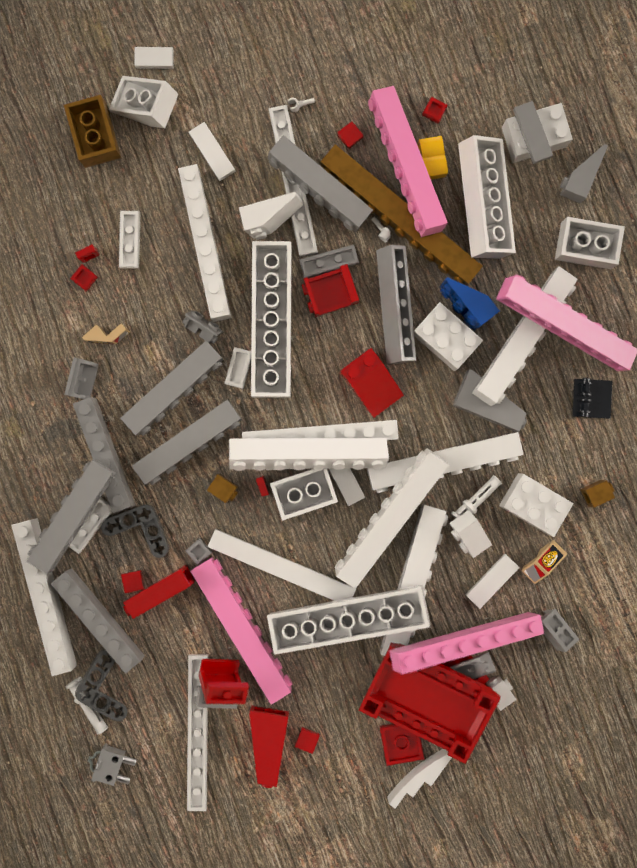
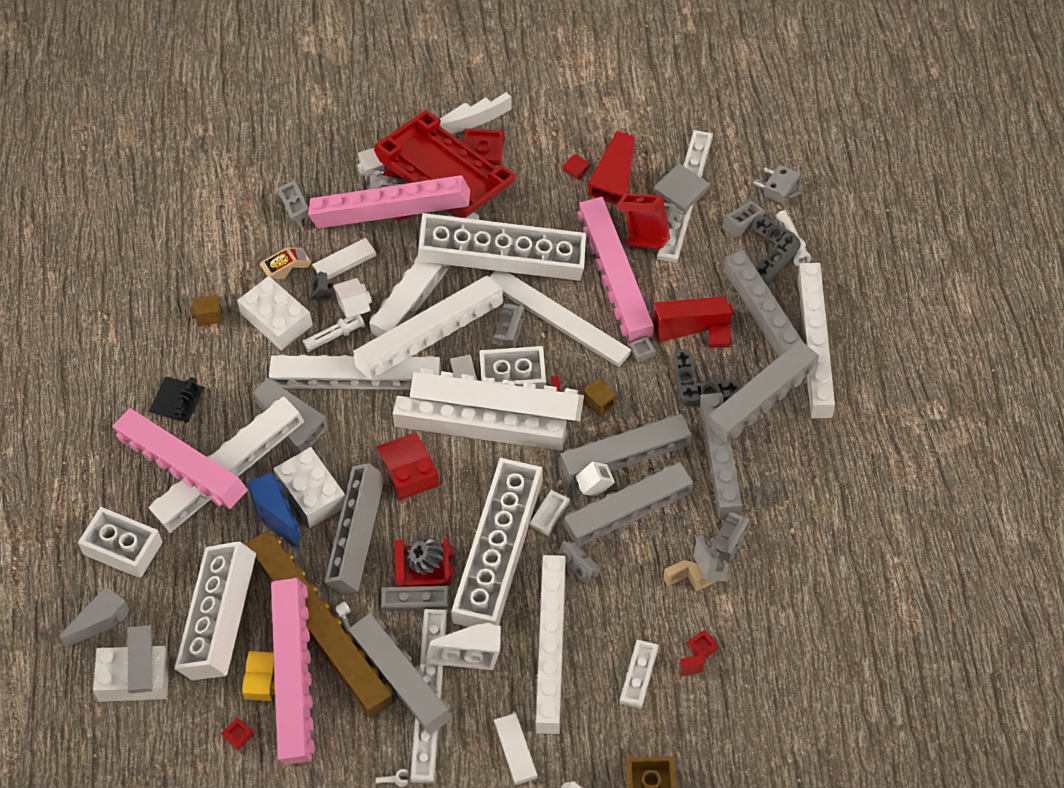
camera: 155 degrees left, 30 degrees down
(87, 340) = (709, 561): none -> light grey hinge
(143, 706) = (737, 227): none -> light grey slope
(200, 736) = (681, 187): none -> light grey tile
(205, 402) = (595, 479): none -> white brick
(322, 543) = (508, 327): none -> light grey hinge
(329, 292) = (425, 555): none -> dark grey gear
(350, 135) = (346, 728): red tile -> none
(505, 544) = (319, 286): none -> dark grey tile

